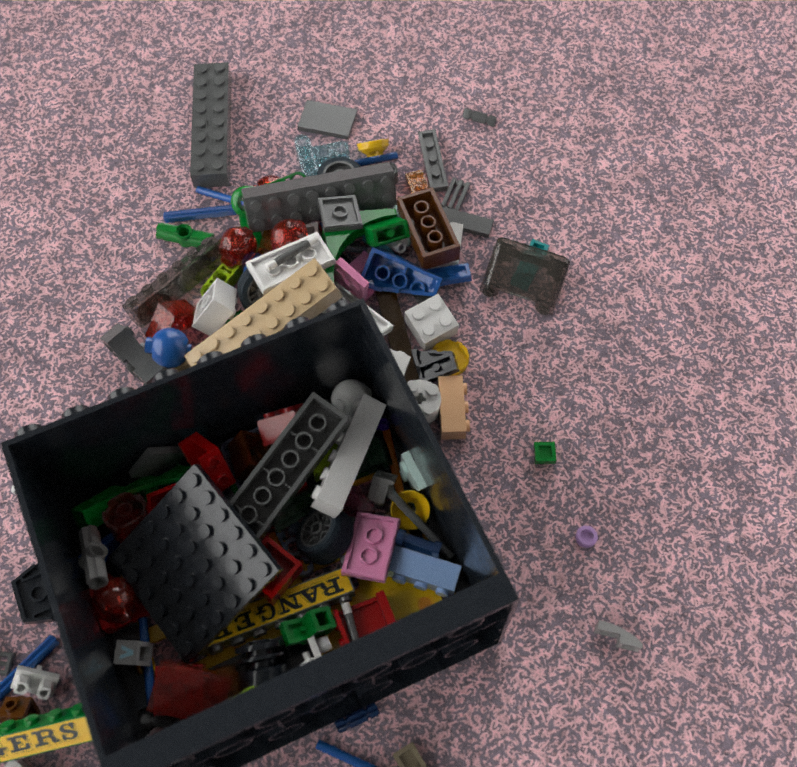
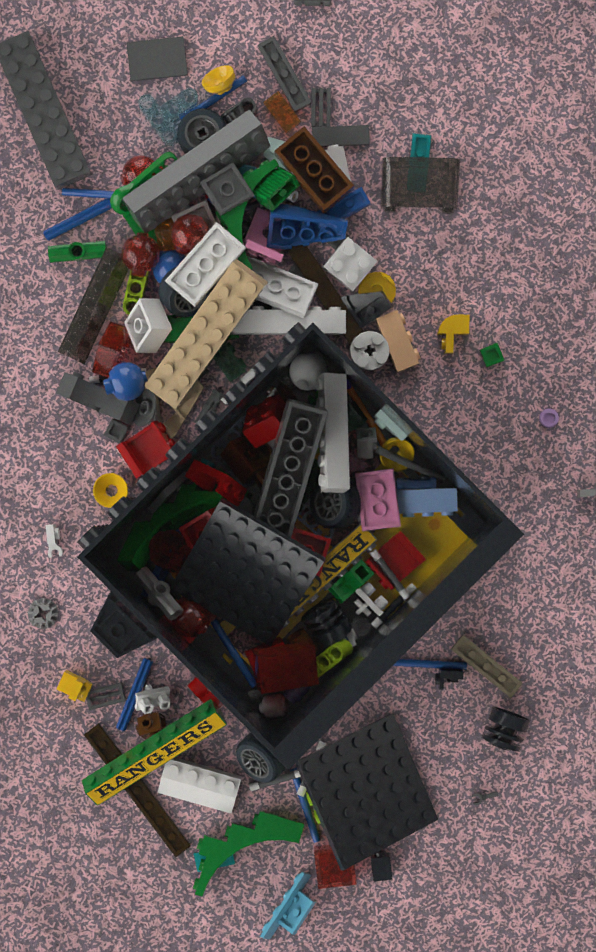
camera: 20 degrees left, 25 degrees up
(133, 653) = (222, 651): light grey brick -> none
(291, 253) = (204, 257): dark grey bar -> none
(512, 411) = (451, 326): none -> yellow brick

